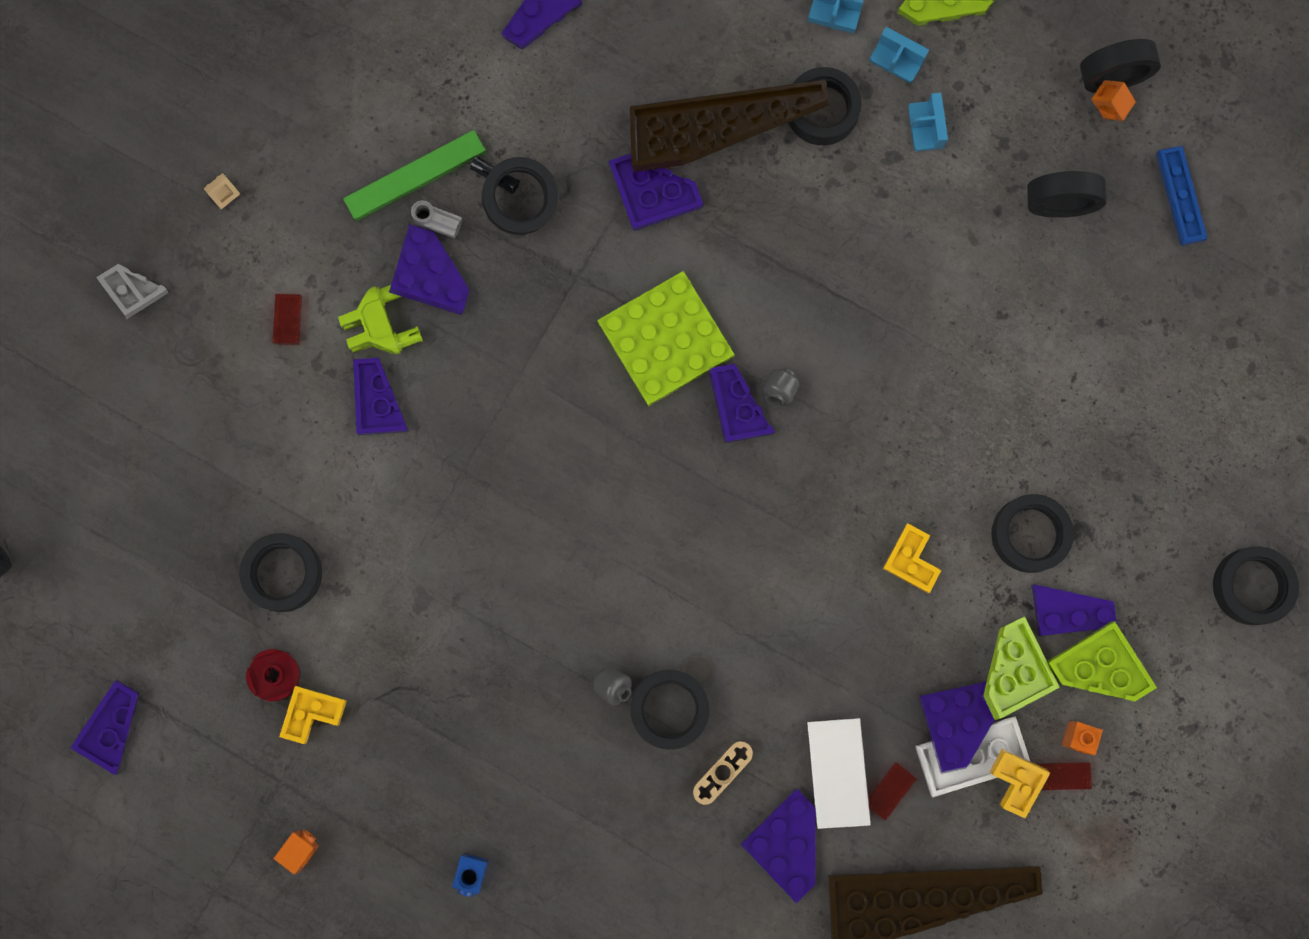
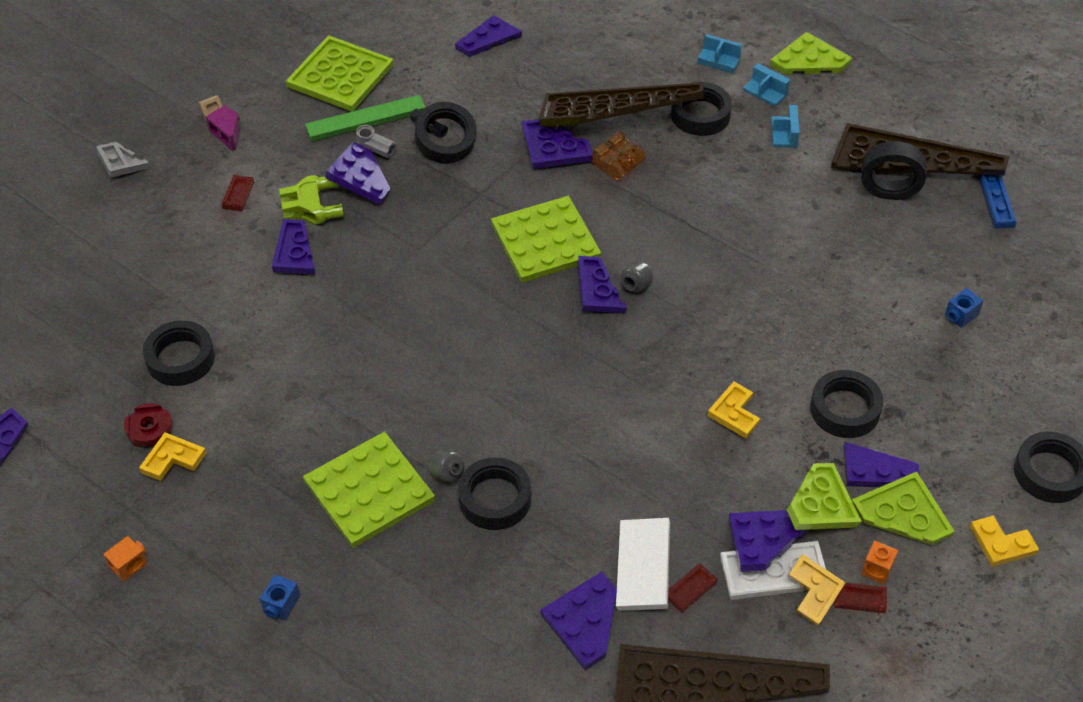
camera: 10 degrees right, 30 degrees down
(246, 217) = (224, 126): none -> magenta slope
(367, 105) = (340, 73): none -> lime plate
(532, 719) = (369, 489): none -> lime plate
(724, 783) = (530, 561): tan beam -> none
(733, 188) = (617, 156): none -> clear orange legs
(1042, 145) = (939, 156): none -> dark brown wing
(1113, 100) = (940, 125): orange brick -> none
(1122, 62) = (940, 81): black tyre -> none
(1160, 372) = (964, 307): none -> blue brick
(1201, 692) = (1001, 547): none -> yellow plate

